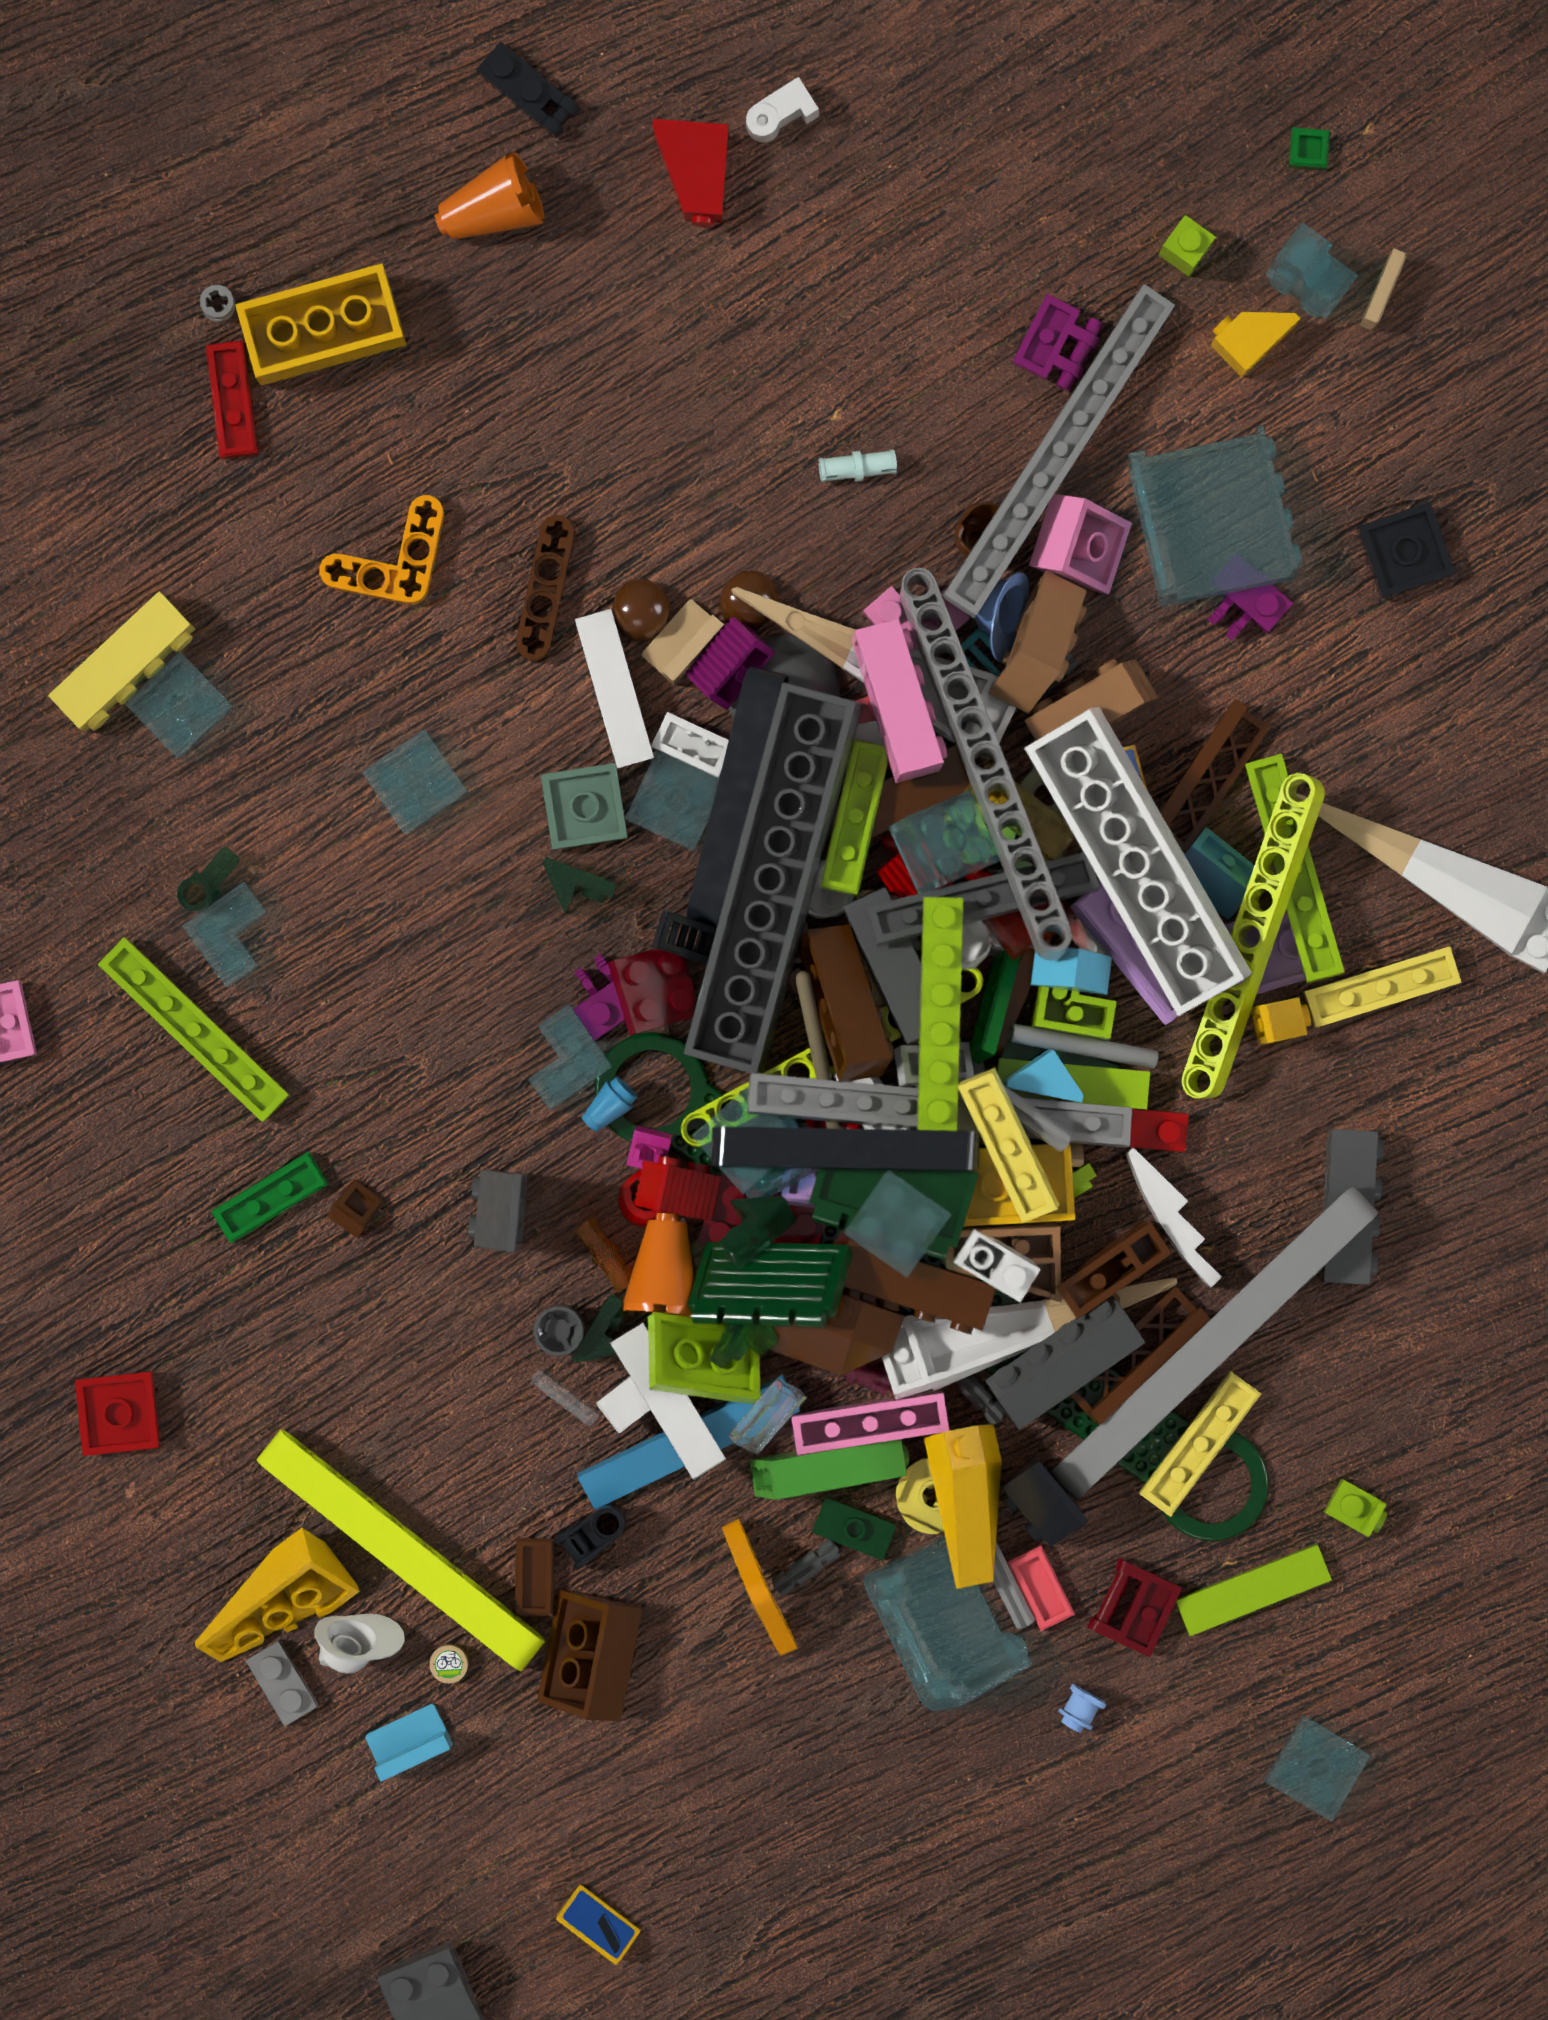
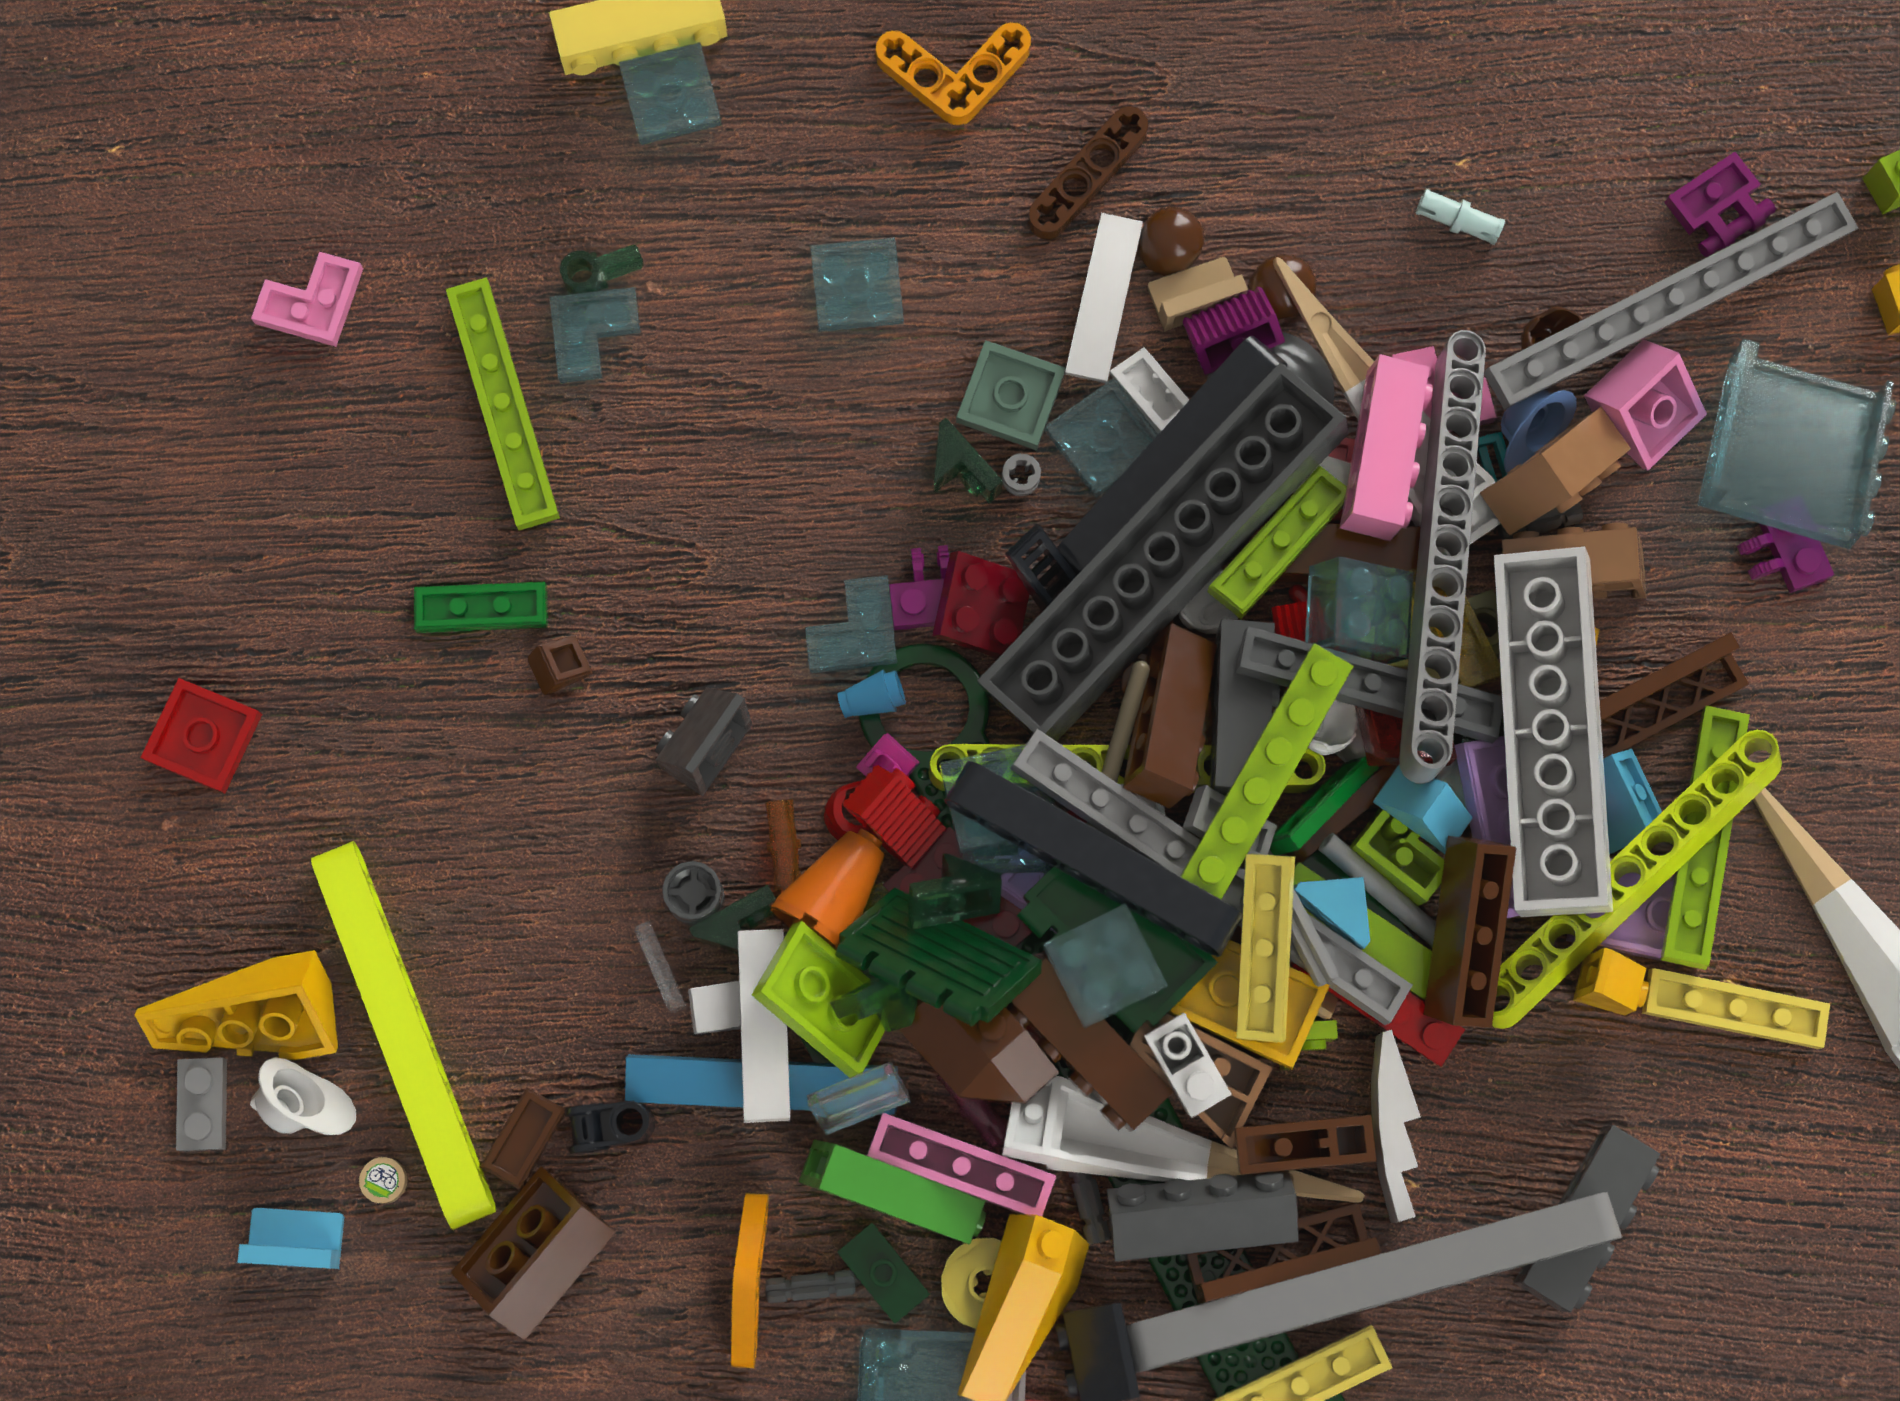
camera: 25 degrees right, 10 degrees down
(638, 866) = (1009, 469): none -> light grey bush
(1153, 1045) = (1469, 931): none -> reddish brown brick

